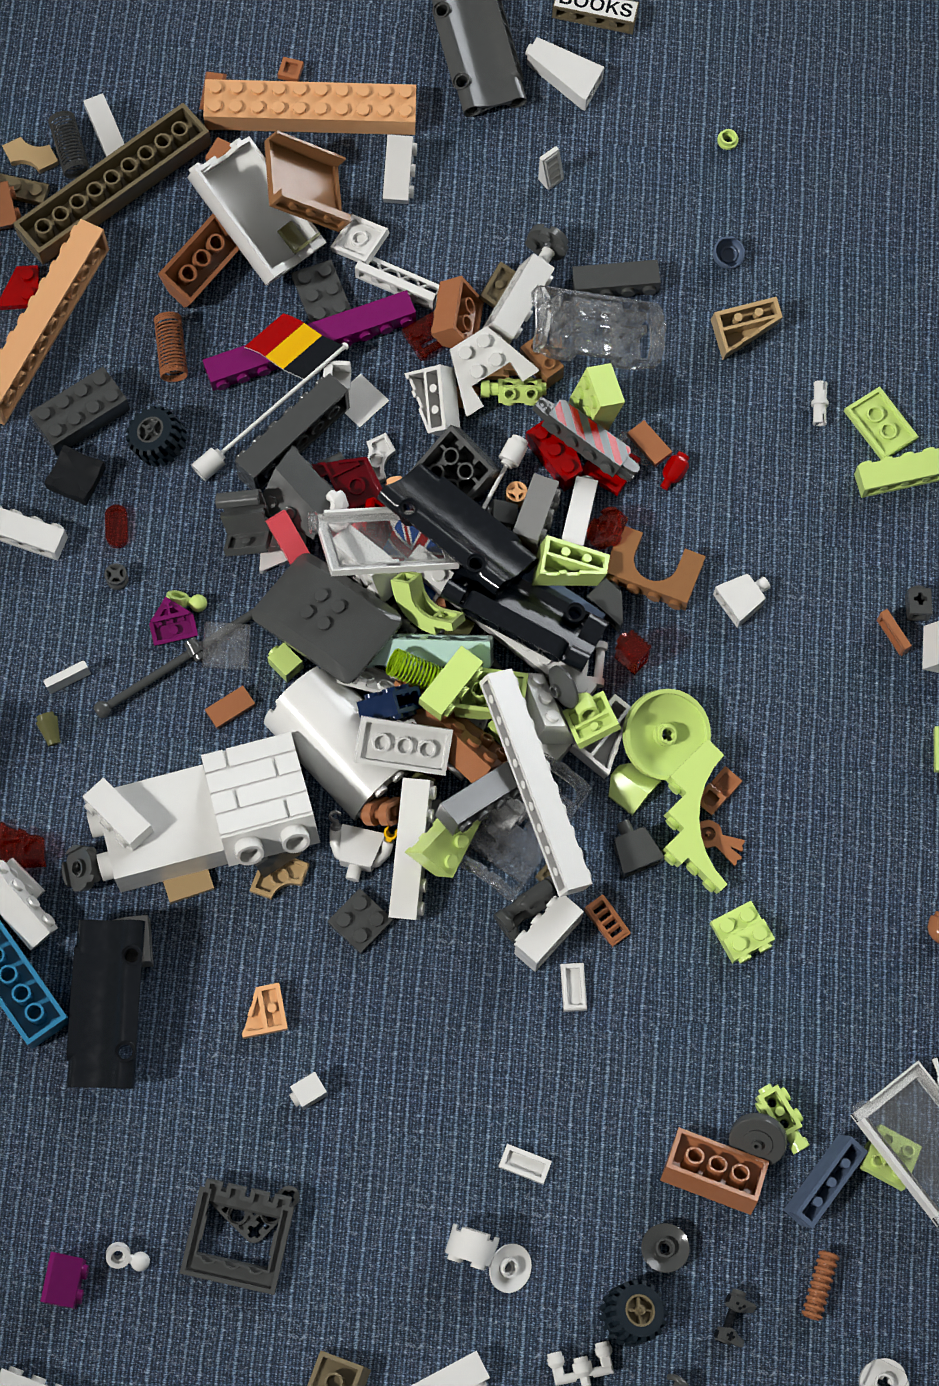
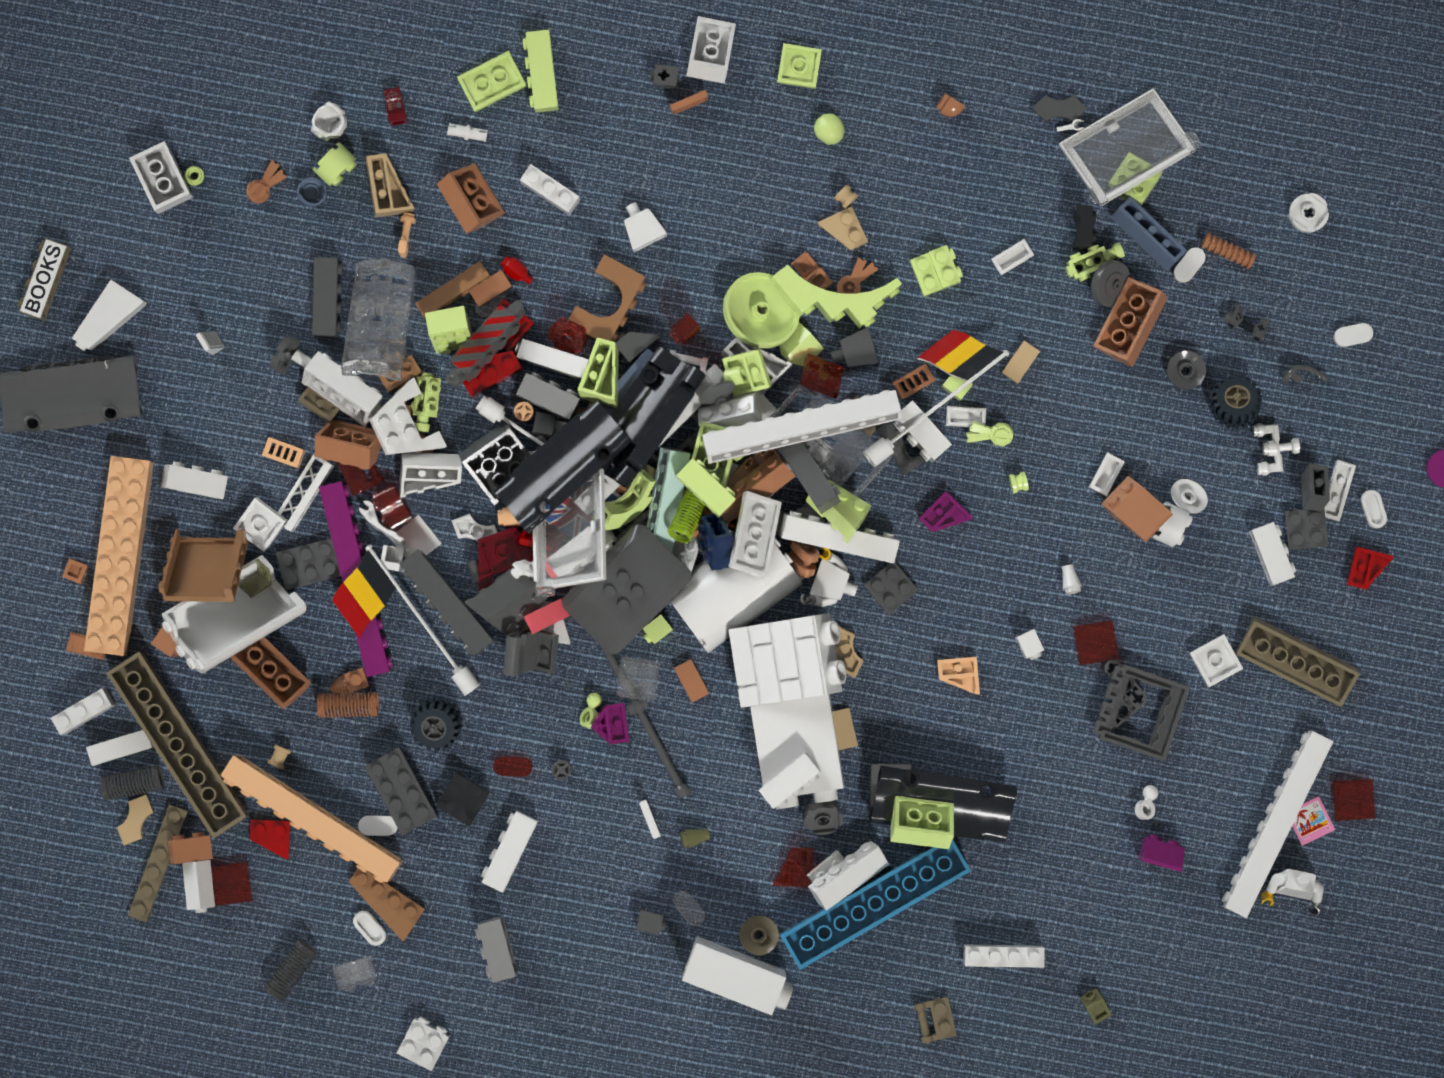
camera: 80 degrees left, 15 degrees up
(39, 389) = (377, 826): none -> white tile
(80, 977) = (922, 822): none -> yellowish green slope
(108, 285) = (279, 756): none -> tan bush
(141, 90) = (83, 711): none -> white brick
(196, 349) = (350, 682): none -> nougat plate
(309, 1325) = (1216, 660): none -> white plate
(318, 1173) = (1096, 642): none -> clear red plate
(377, 352) = (371, 517): none -> white arm
(390, 370) = (392, 507): none -> clear red brick
(391, 1132) = (1071, 582): none -> white cone
(437, 271) = (298, 458): none -> light nougat slope
(454, 973) = (944, 513): none -> magenta wing
(485, 1199) = (1136, 509): none -> nougat slope
(502, 1056) = (1018, 482): none -> yellowish green wheel
(557, 1028) = (1000, 433): none -> yellowish green piece
(599, 810) = (821, 375): none -> clear red plate
(609, 970) = (953, 383): none -> yellowish green panel
(643, 409) = (453, 289): none -> medium nougat fence
(643, 966) = (957, 356): none -> flag
(647, 1045) = (1020, 362): none -> tan tile
(683, 349) = (407, 220): none -> light nougat hinge
(720, 104) = (161, 177): none -> white brick
(722, 203) = (259, 190): none -> nougat piece
(747, 413) = (470, 198): none -> nougat slope
(761, 270) = (335, 164): none -> yellowish green brick
(769, 494) = (550, 189): none -> white brick
(772, 1021) = (1012, 257): none -> white tile
(776, 823) = (845, 228): none -> tan wing
(795, 1239) = (1189, 265): none -> white tile
(807, 261) = (329, 122): none -> white hair
(812, 1100) = (1084, 219): none -> black brick
(814, 819) = (846, 196): none -> tan wheel
(835, 327) = (395, 106): none -> dark red leg
(889, 793) = (829, 129): none -> yellowish green hair

